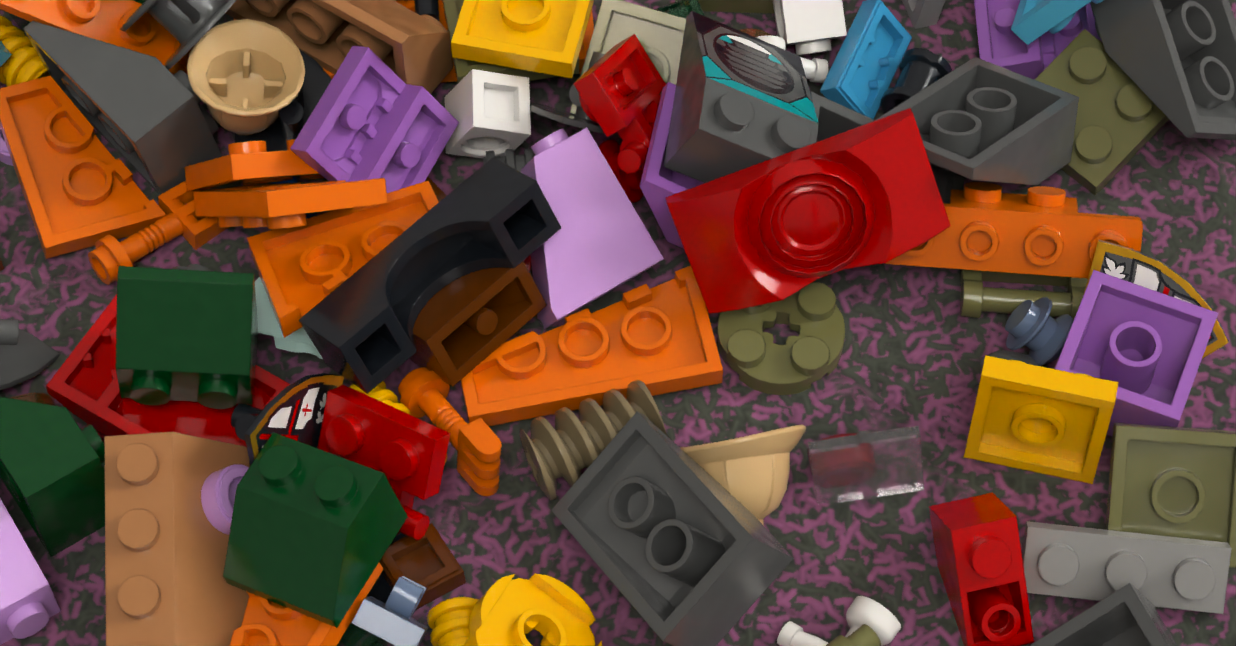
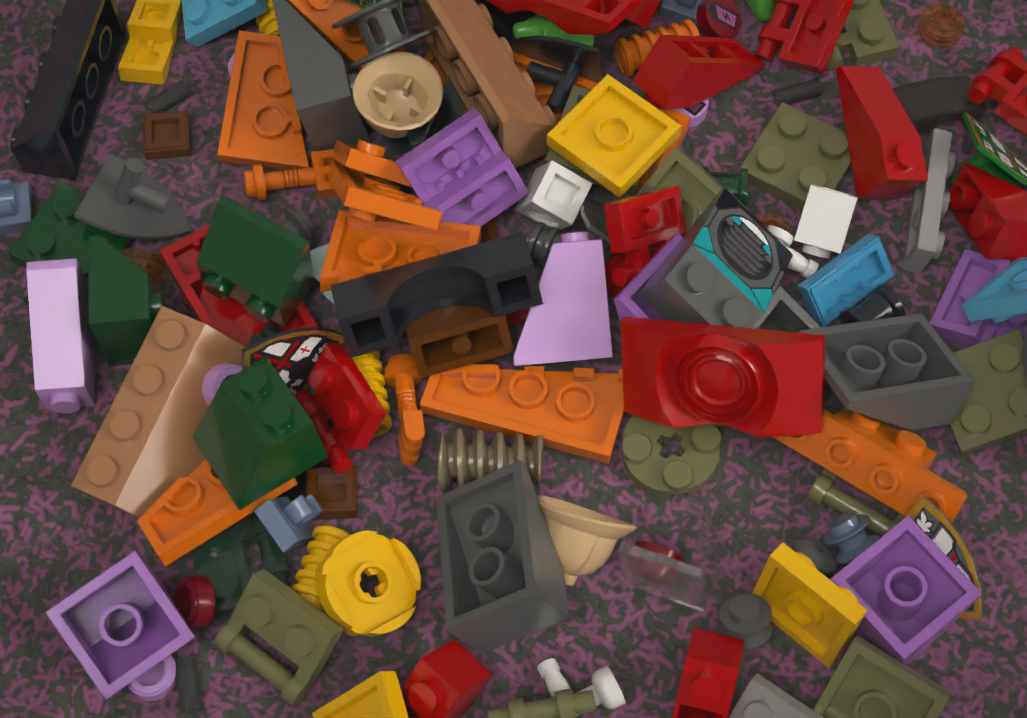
camera: 30 degrees right, 5 degrees up
(978, 469) = (746, 618): none -> dark grey wheel

